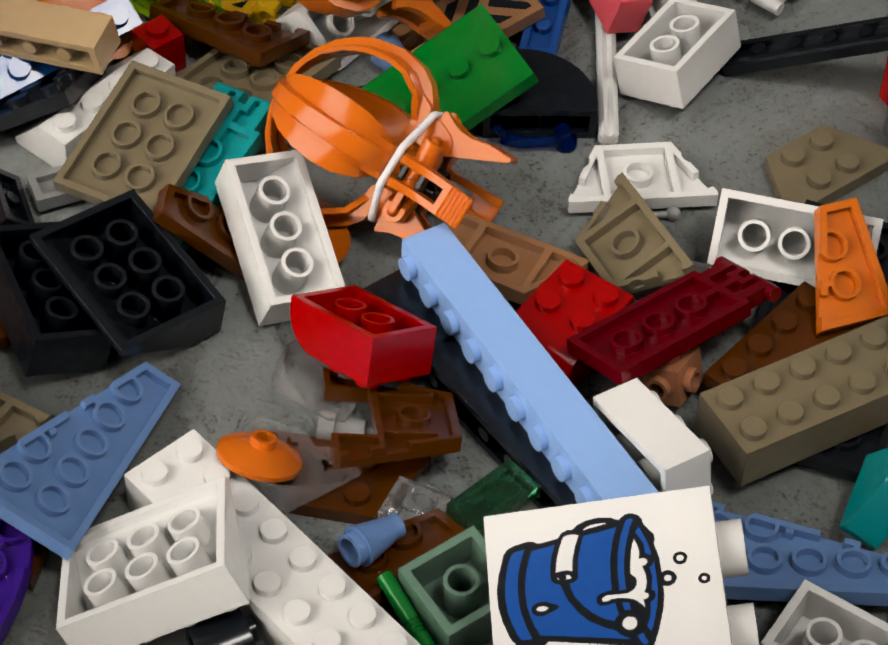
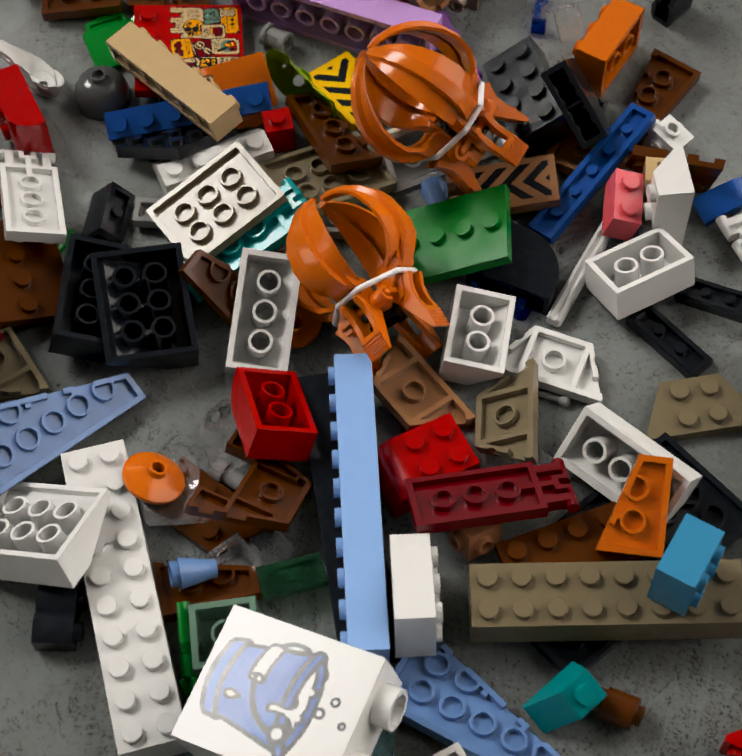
camera: 30 degrees right, 10 degrees up
(549, 181) = (477, 336): none -> white slope
(746, 115) = (669, 342): none -> black tile

